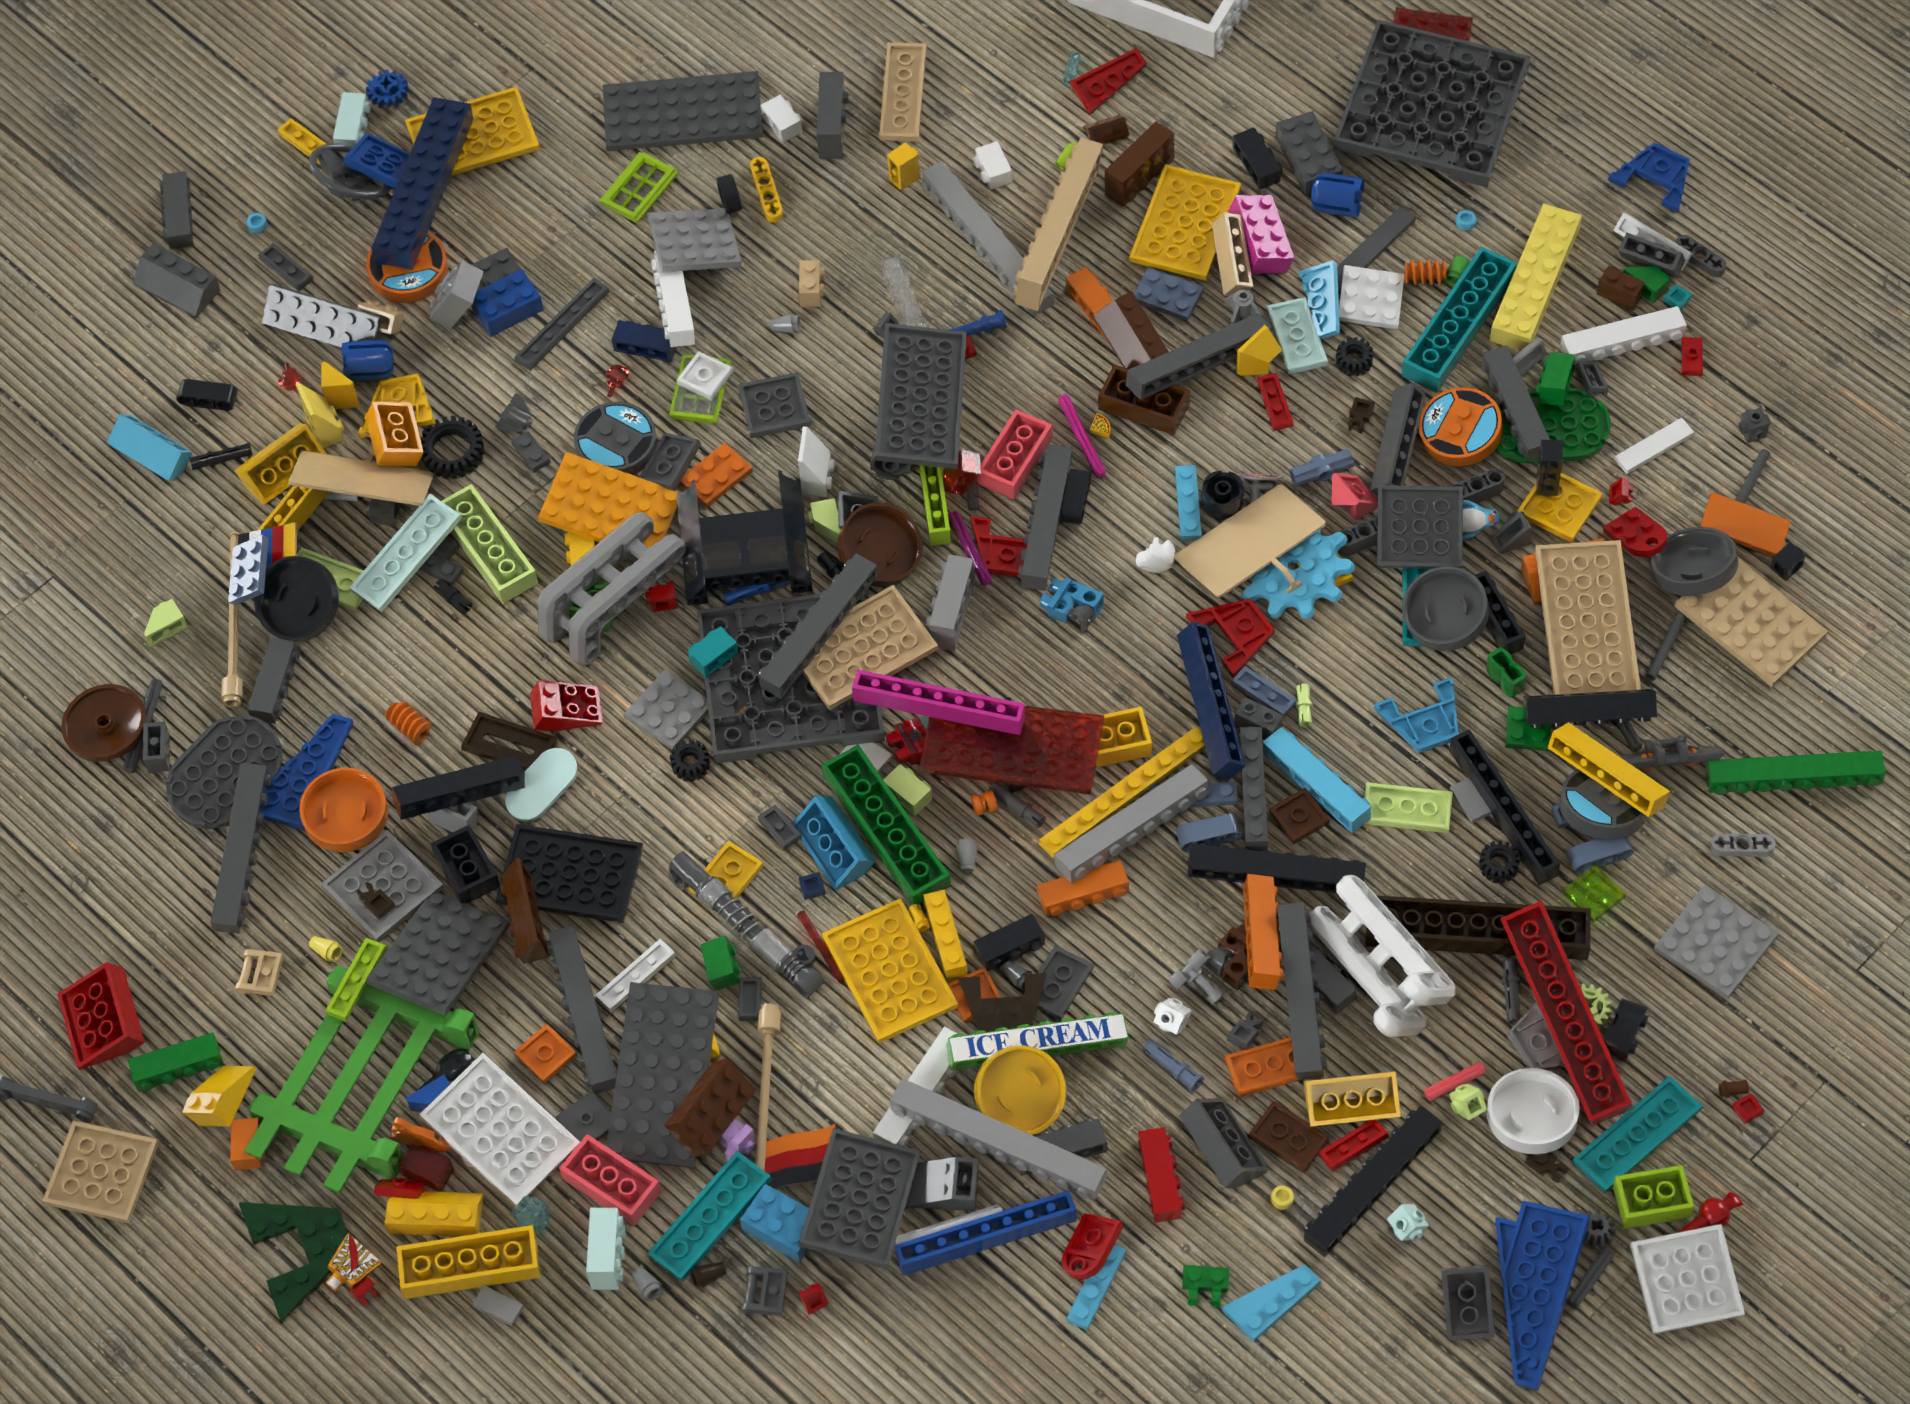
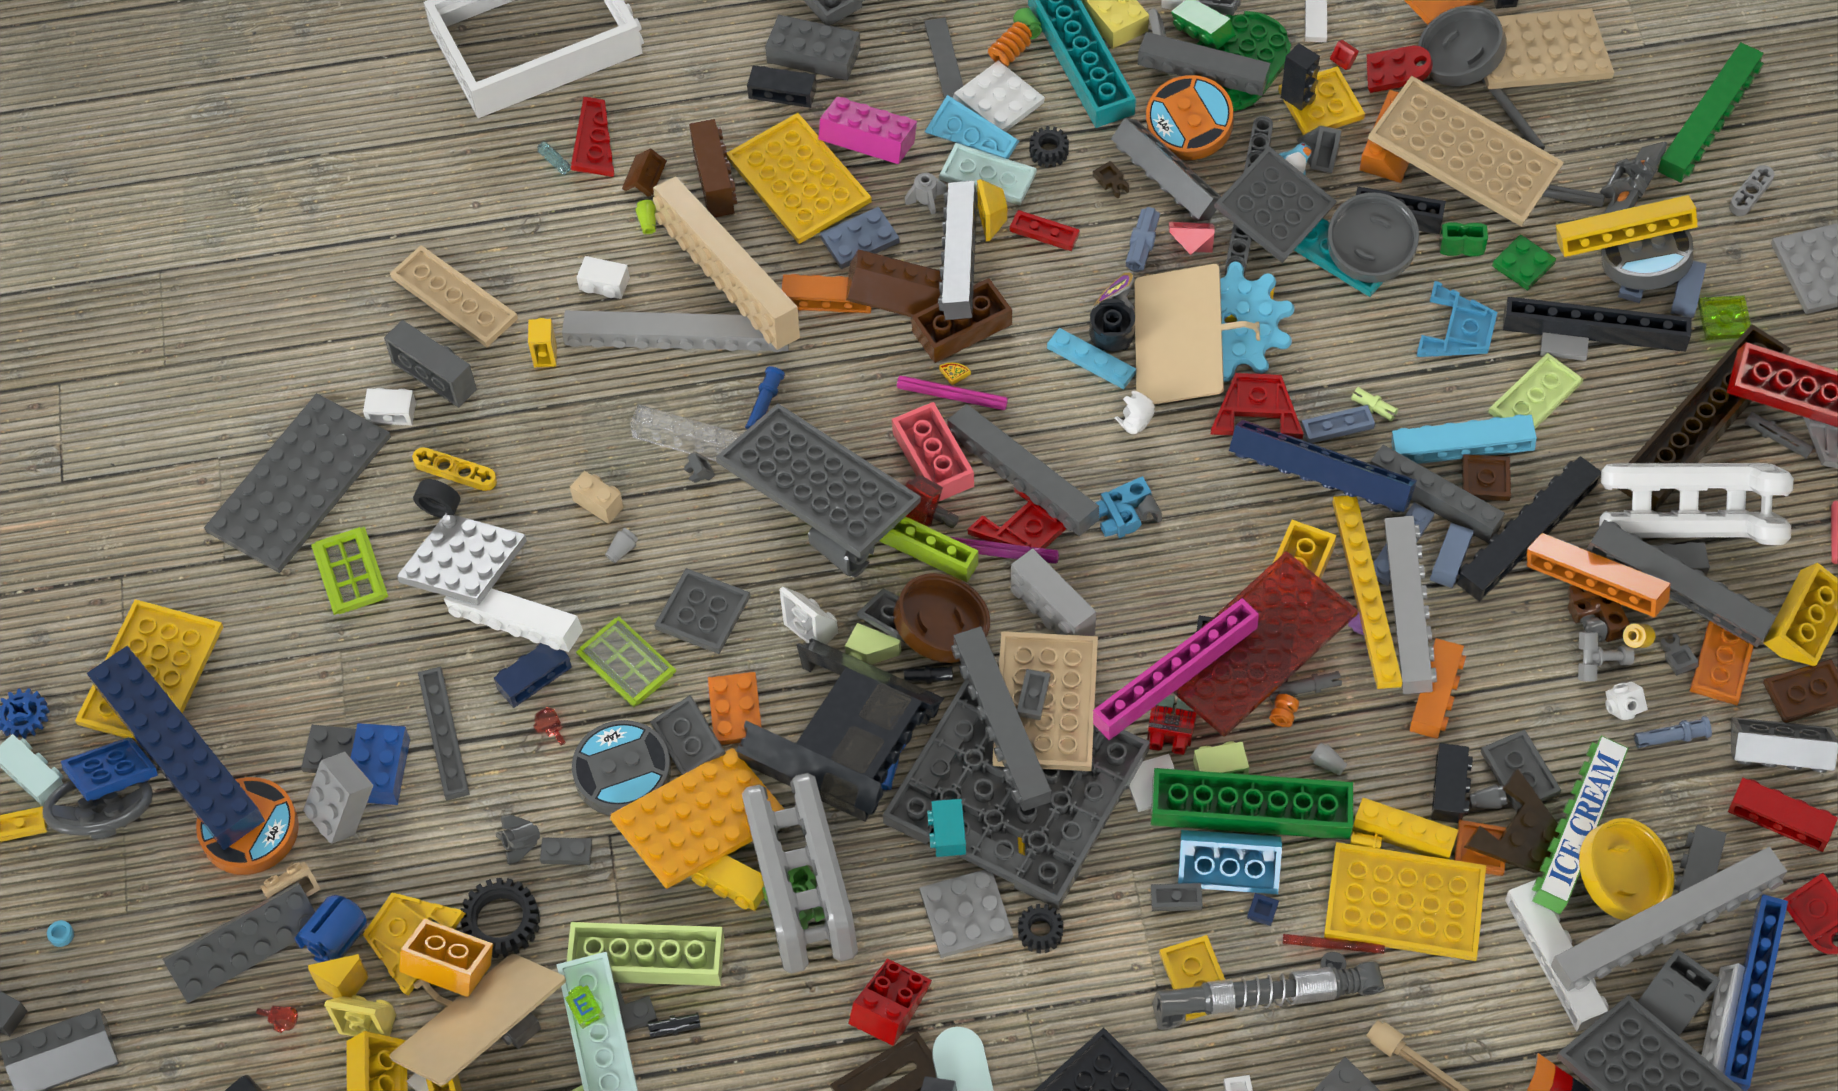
camera: 55 degrees left, 0 degrees up
(285, 267) = (140, 939): dark grey tile -> none
(411, 528) = (584, 1006): none -> clear neon green brick
(662, 597) = (842, 834): red brick -> none
(704, 375) = (620, 646): white tile -> none
(720, 962) = (1293, 1040): green brick -> none
(749, 998) = (1345, 1042): dark grey tile -> none
(854, 633) = (1033, 694): none -> dark grey plate
(1075, 496) = (1017, 431): black beam -> none
(1232, 253) = (872, 162): tan brick -> none
(1237, 993) = (1639, 635): none -> yellow brick
(1256, 715) = (1366, 442): dark grey brick -> none
(1337, 194) = (878, 52): blue cylinder -> none
(1499, 873) = (1648, 353): black tyre -> none
(1590, 707) = (1550, 202): black brick -> none

